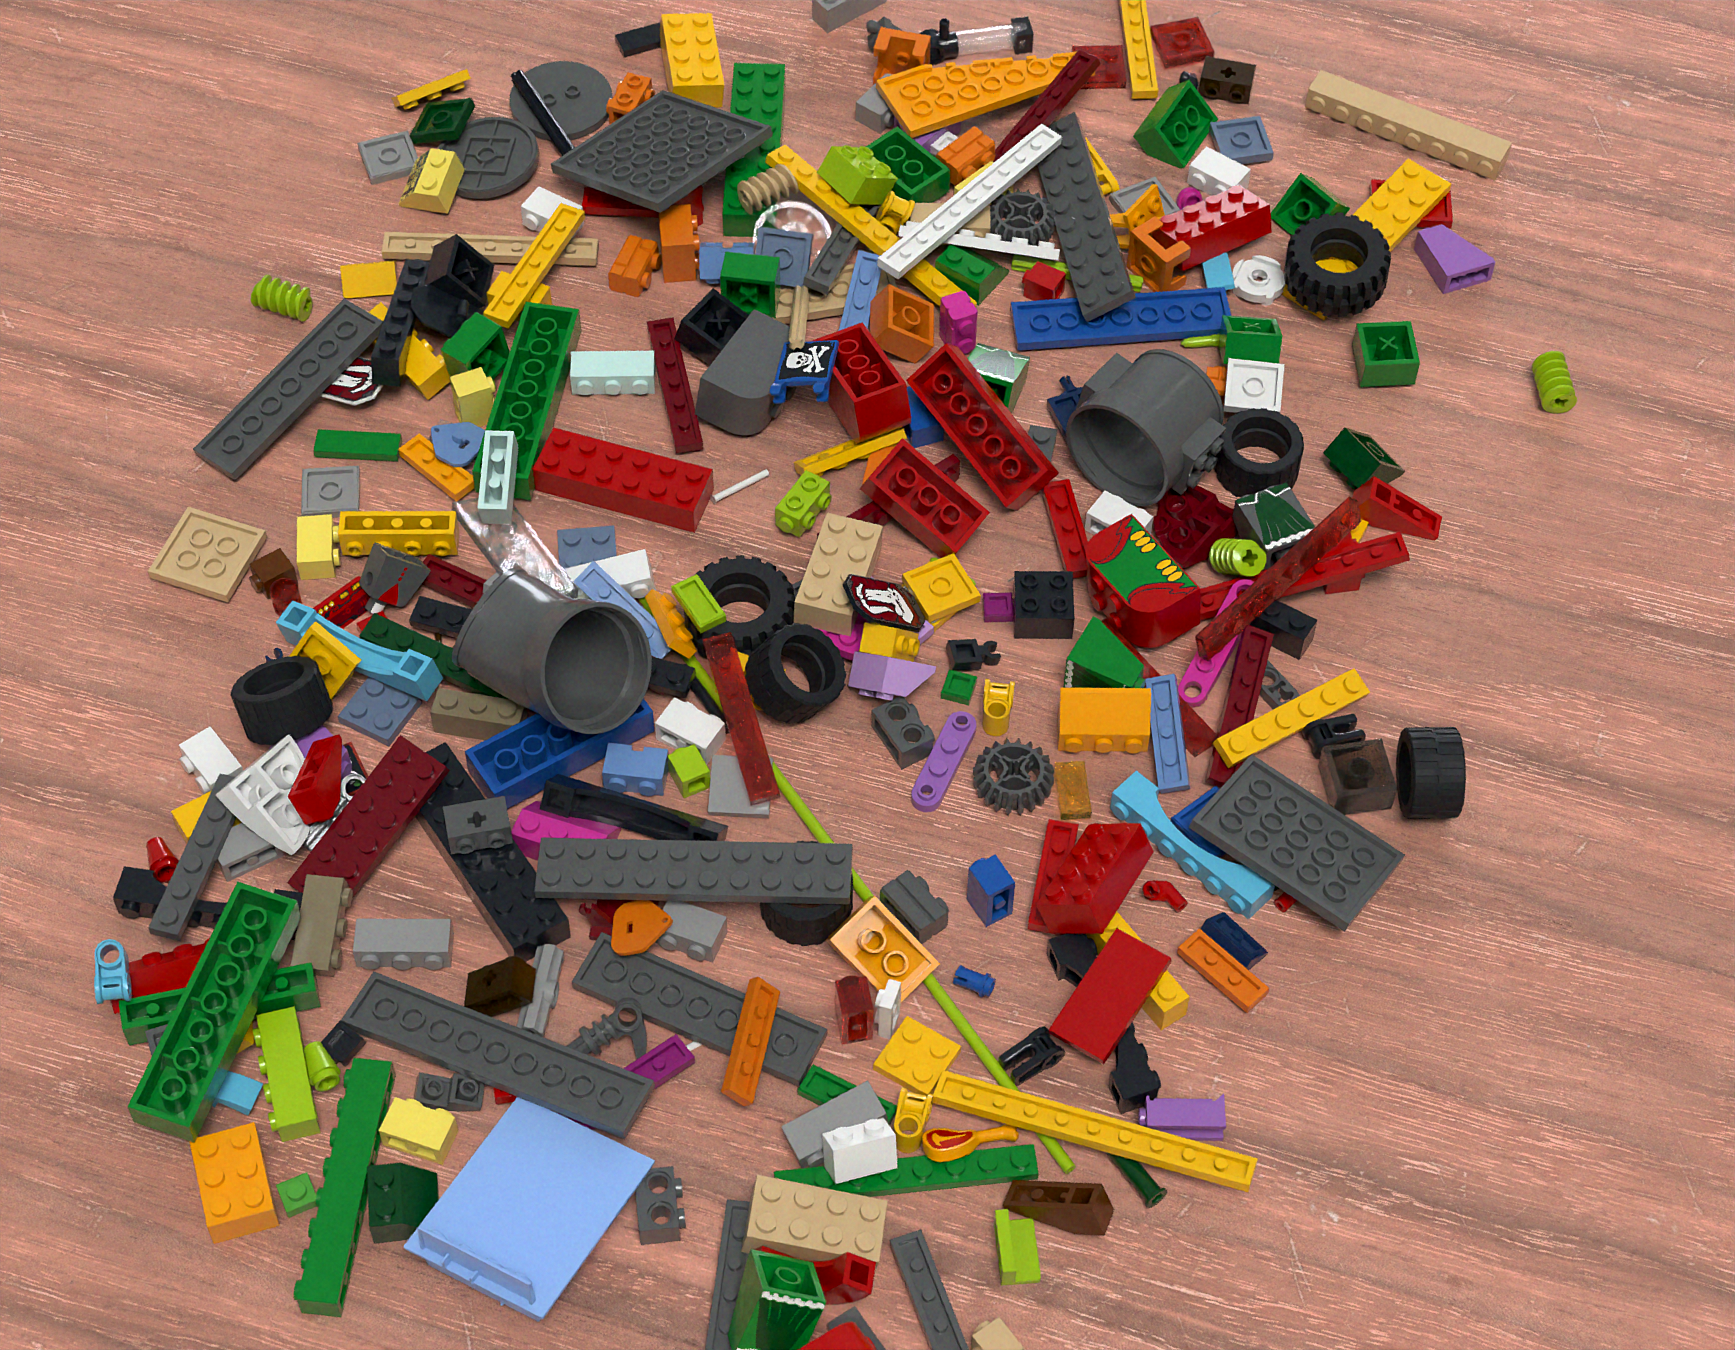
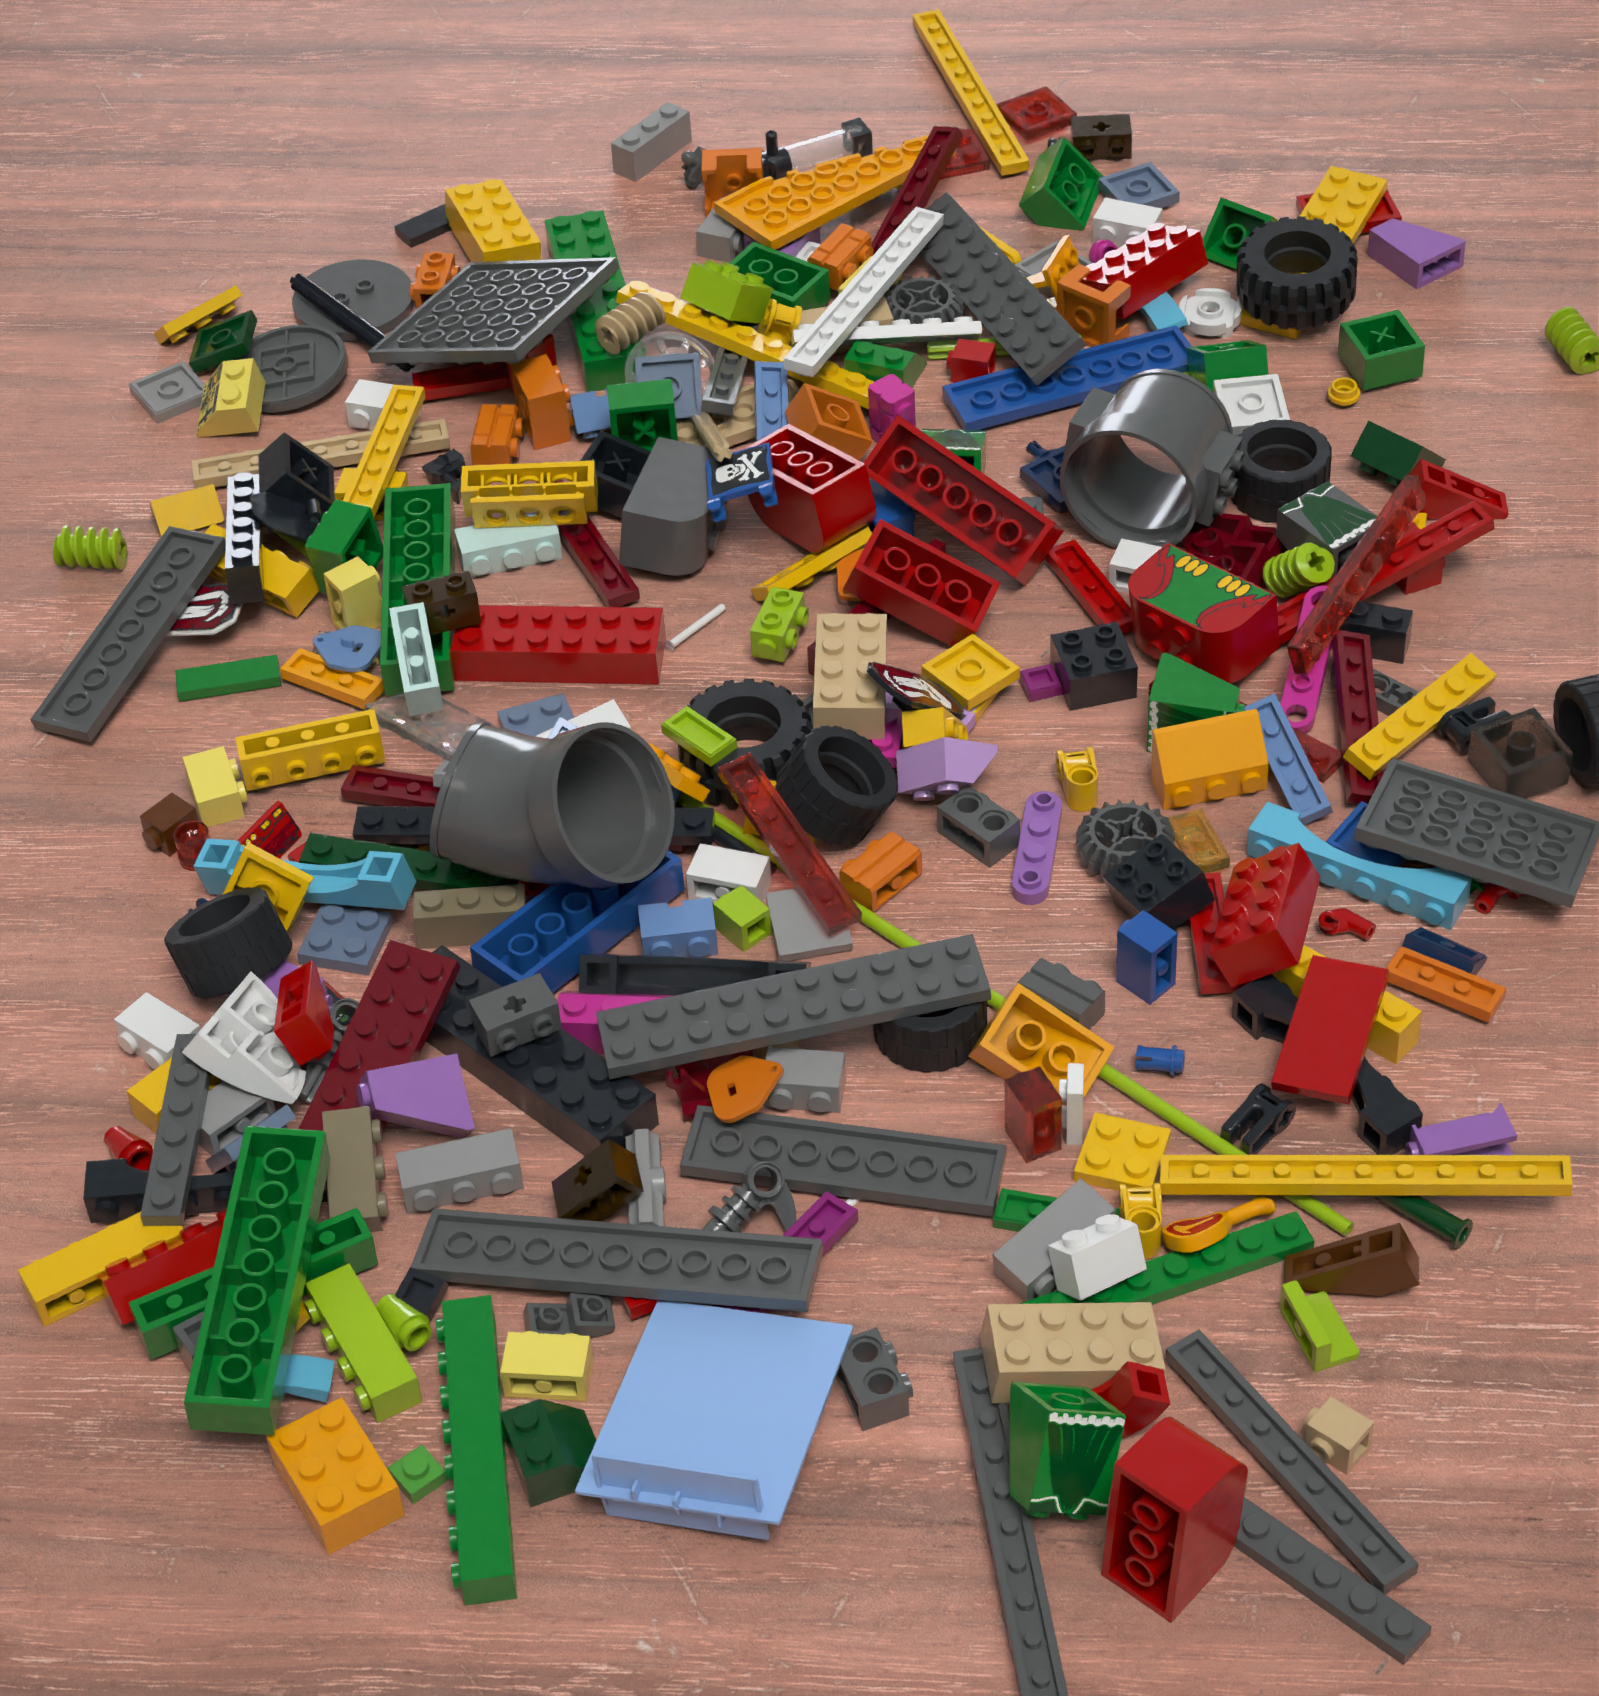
camera: 10 degrees left, 10 degrees down
(75, 960) = (68, 1277): none -> yellow brick
(111, 979) = (114, 1272): medium azure piece -> none
(207, 554) = (82, 822): tan plate -> none
(266, 872) = (228, 1155): none -> sand blue plate
(330, 490) = (209, 727): light grey tile -> none
(388, 873) = (420, 1095): none -> medium lavender slope
(391, 577) = (317, 794): dark grey torso -> none
(536, 428) = (447, 600): none -> dark brown brick
(587, 286) = (447, 469): none -> black piece
(624, 336) = (542, 497): none -> yellow brick
(750, 1041) = (922, 1174): orange plate -> none
(810, 755) = (881, 870): none -> orange brick
(959, 687) = (1025, 770): green tile -> none
(967, 654) = (1025, 735): black plate -> none
(1021, 829) = (1159, 882): none -> black brick
(1342, 385) = (1343, 392): none -> yellow plate
(1408, 125) = (1315, 140): tan brick -> none

